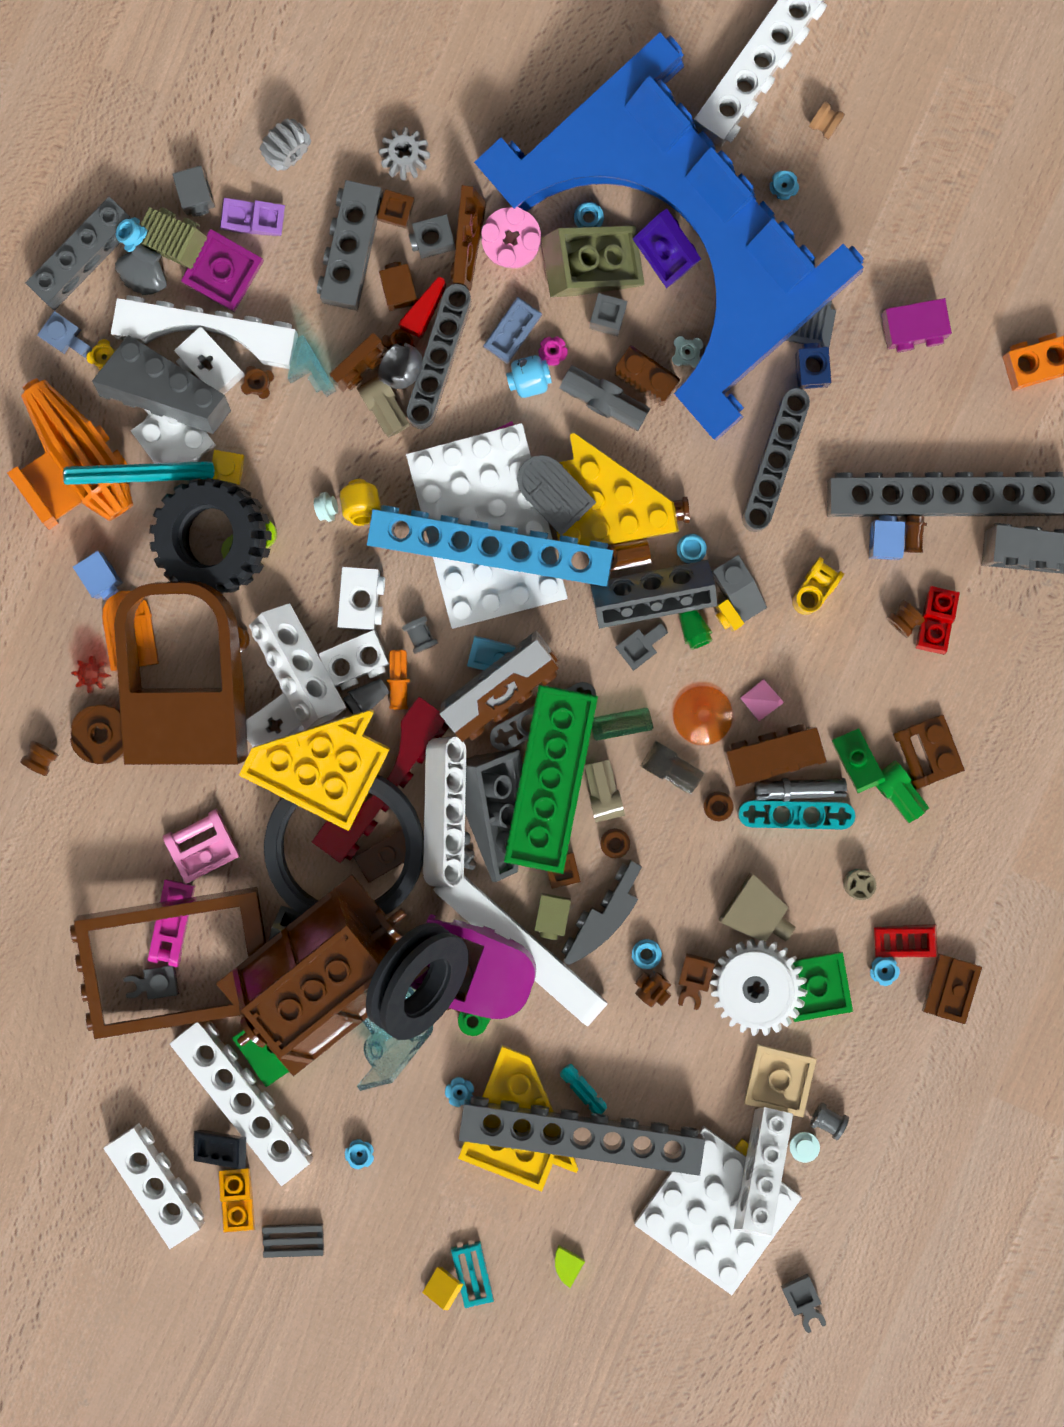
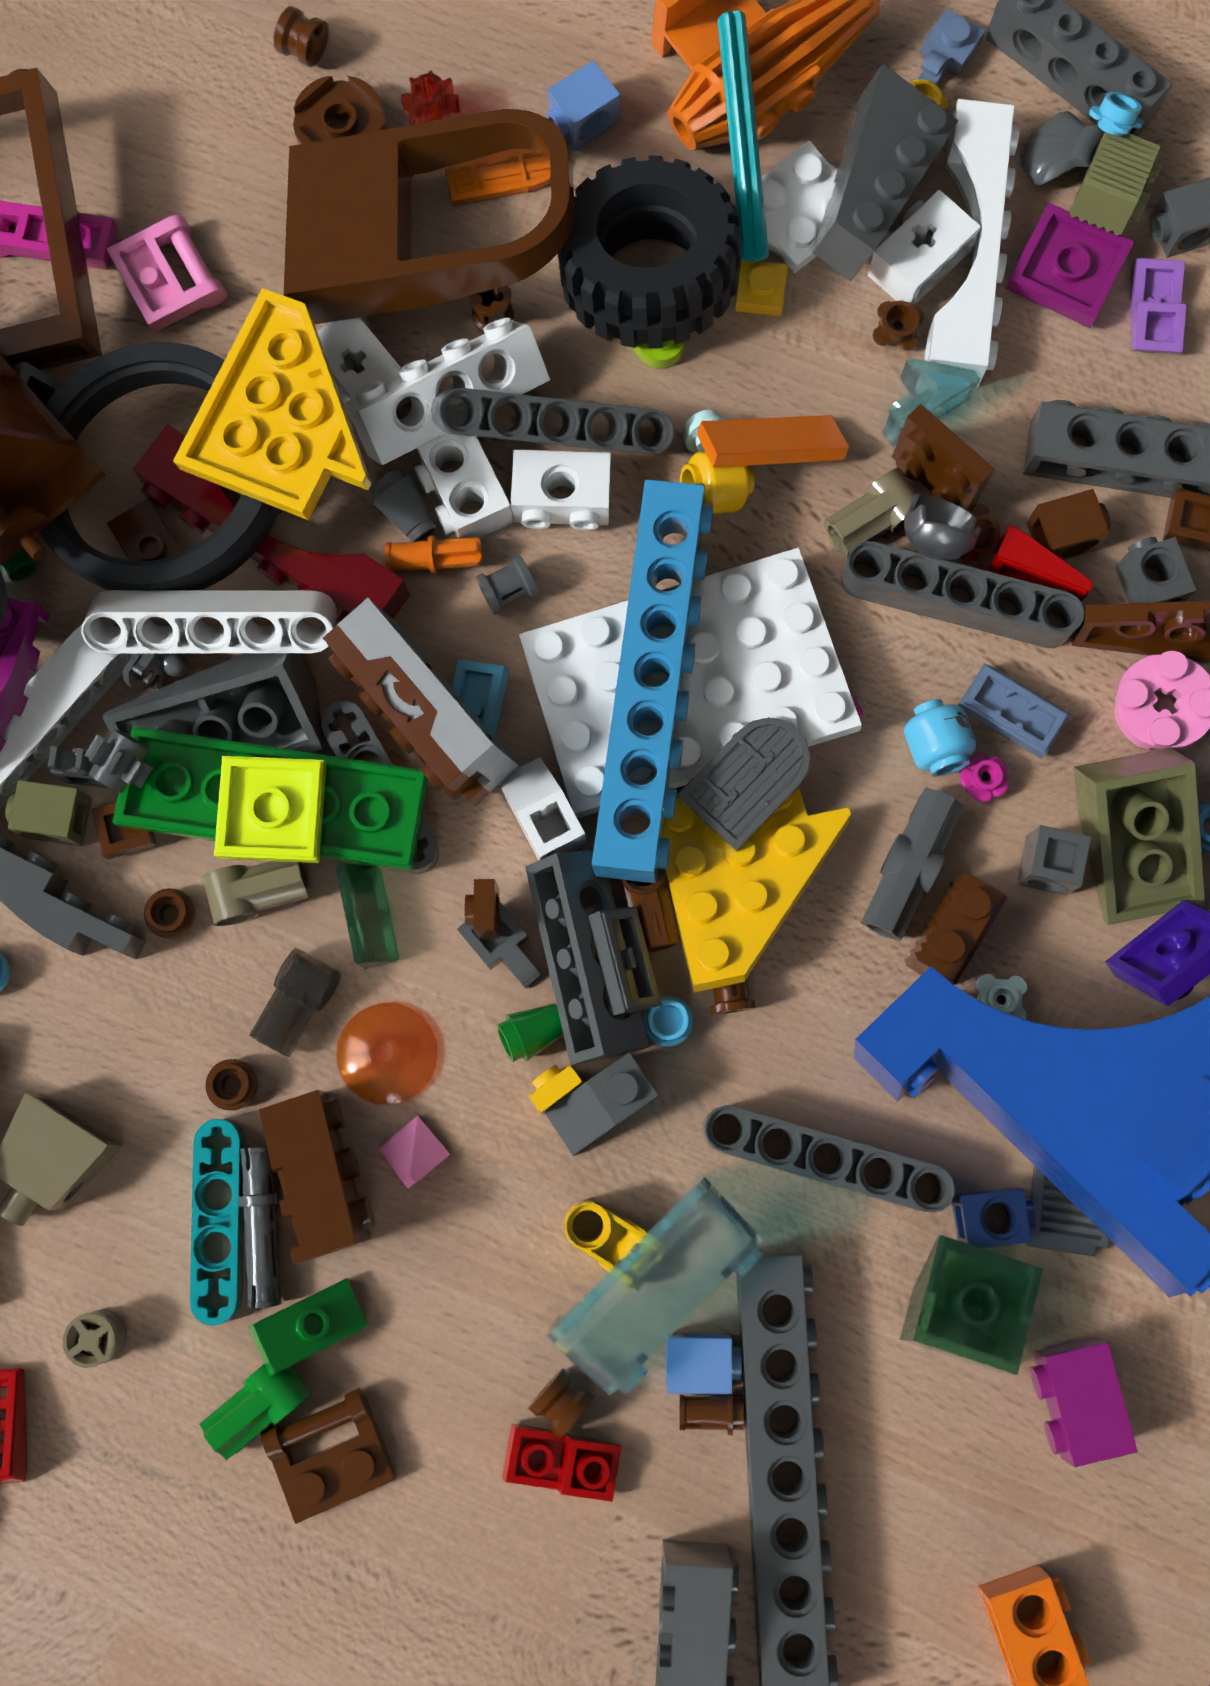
camera: 90 degrees right, 10 degrees down
(314, 611) = (576, 417): none -> dark grey beam
(337, 466) = (772, 440): none -> orange tile
(524, 894) = (72, 767): none -> dark grey plate
(530, 865) = (118, 761): none -> dark grey gear
(560, 777) = (270, 809): none -> neon yellow tile
(564, 617) = (542, 810): none -> white slope
(625, 653) = (483, 909): none -> reddish brown plate
(658, 571) = (619, 962): none -> dark grey tile
(846, 559) = (656, 1288): none -> clear light blue windscreen
(861, 383) = (972, 1305): none -> clear green slope

